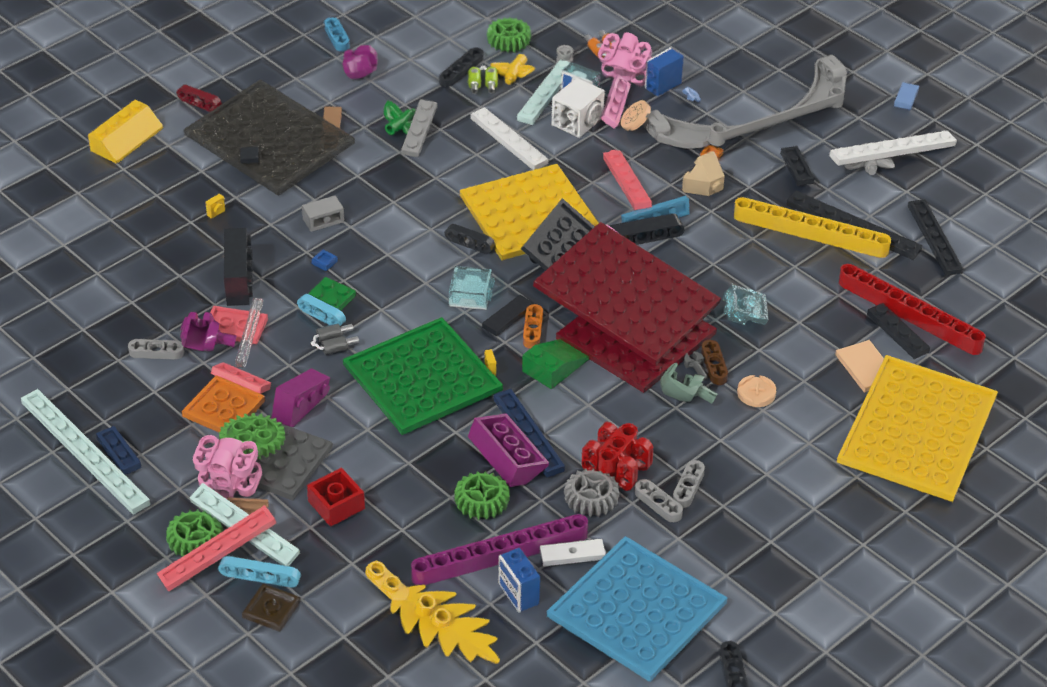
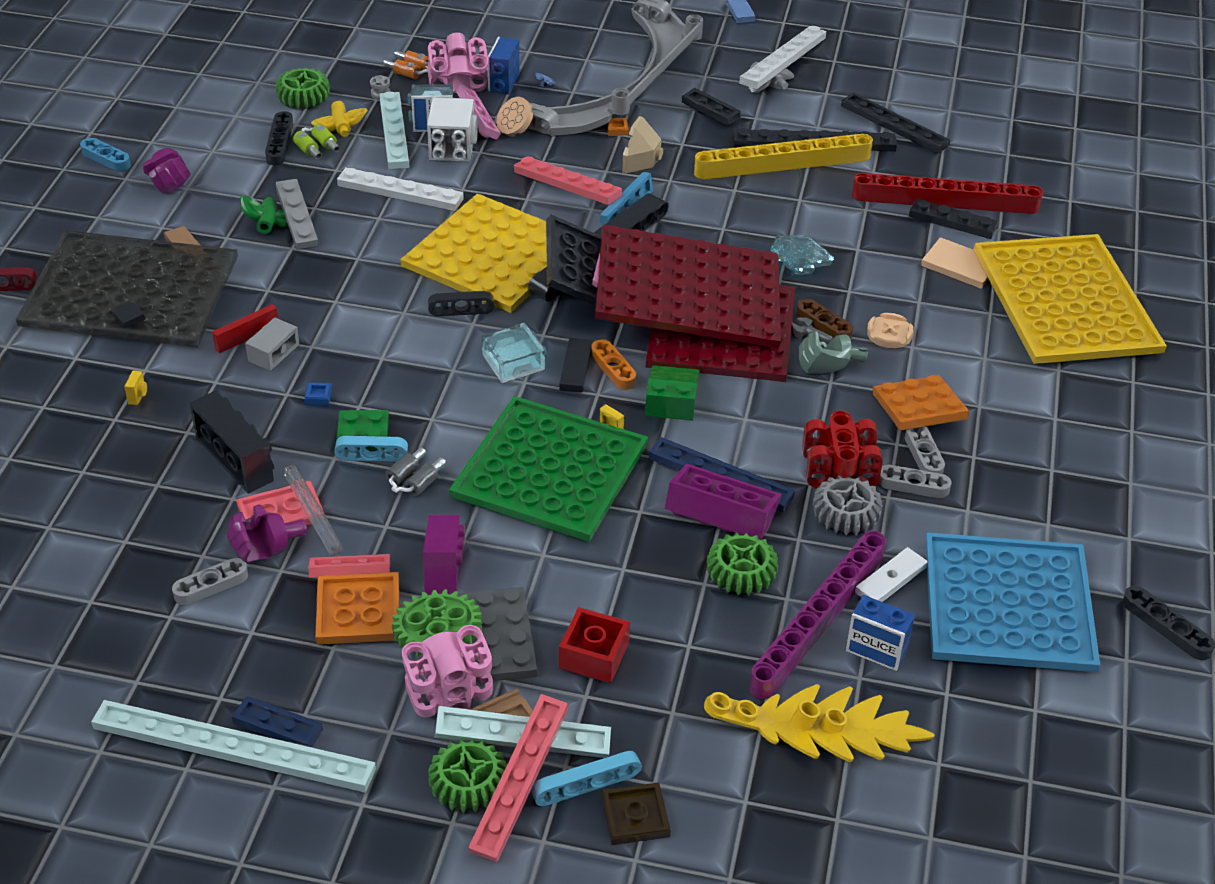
camera: 35 degrees left, 0 degrees up
(303, 196) = (242, 329): none -> red tile
(718, 449) = (920, 402): none -> orange plate

